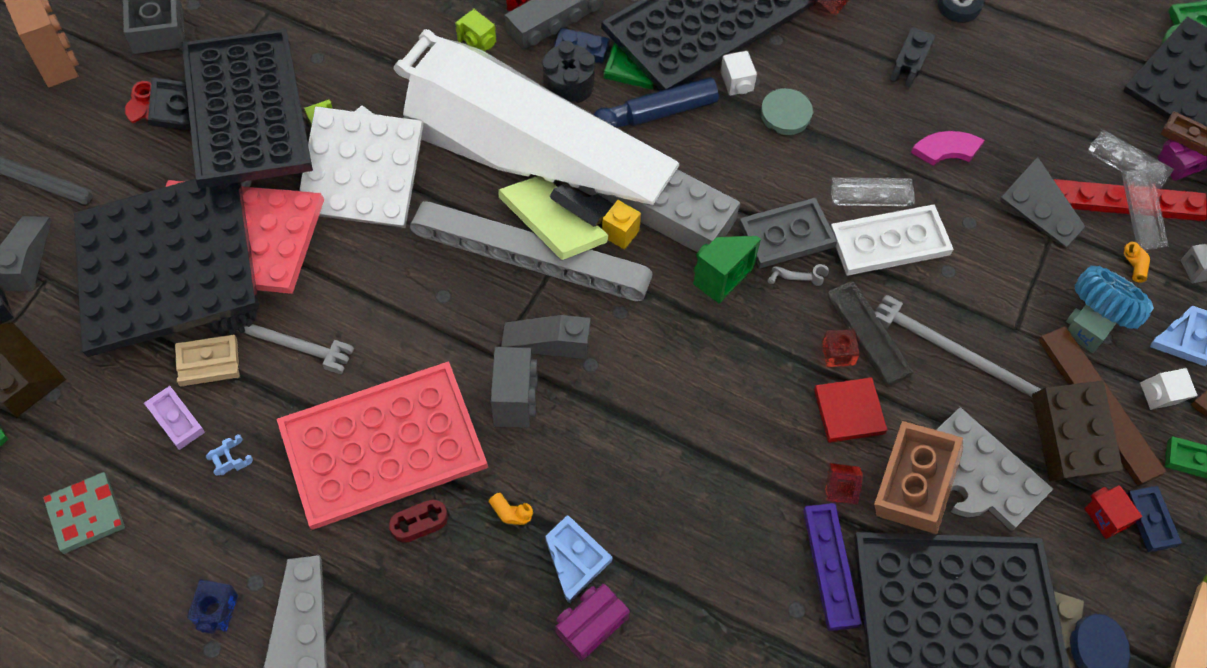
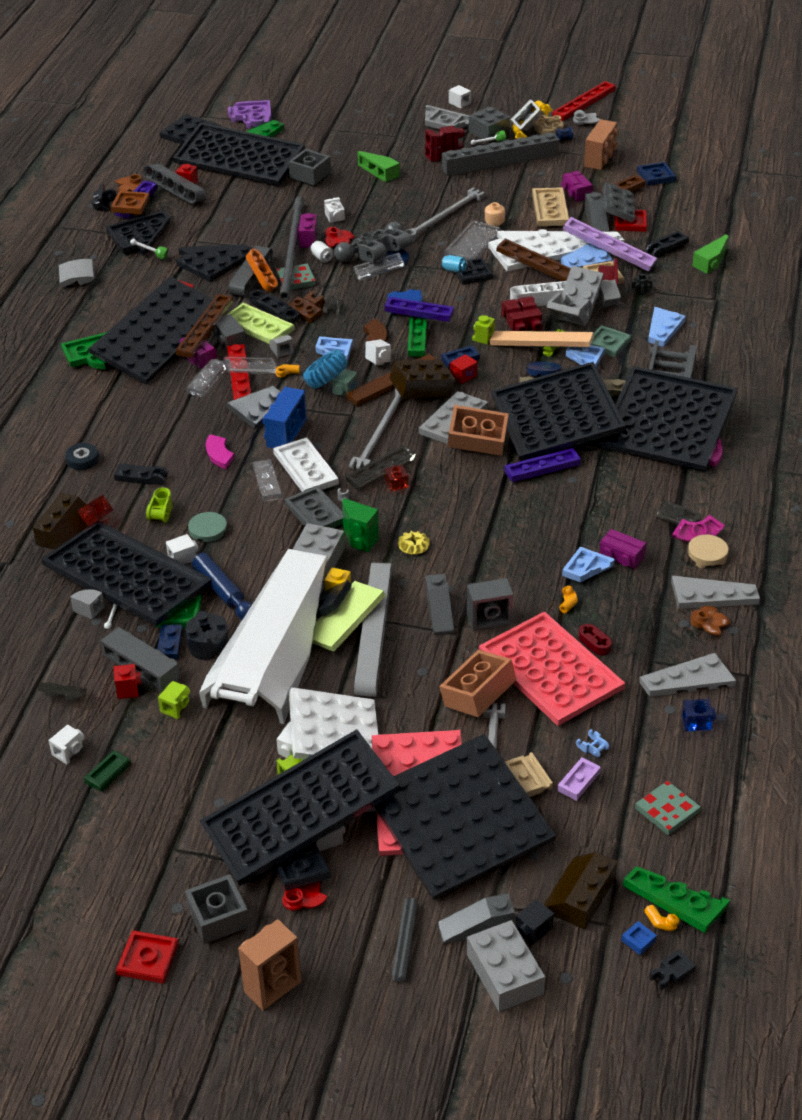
camera: 100 degrees left, 20 degrees down
(369, 334) = (478, 683): none -> nougat brick
(683, 348) = (406, 545): none -> light yellow gear
(835, 64) = (160, 505): none -> lime piece
(844, 491) = (490, 463): clear red plate -> none
(850, 410) = (437, 471): red tile -> none
(992, 223) = (285, 417): none -> blue brick

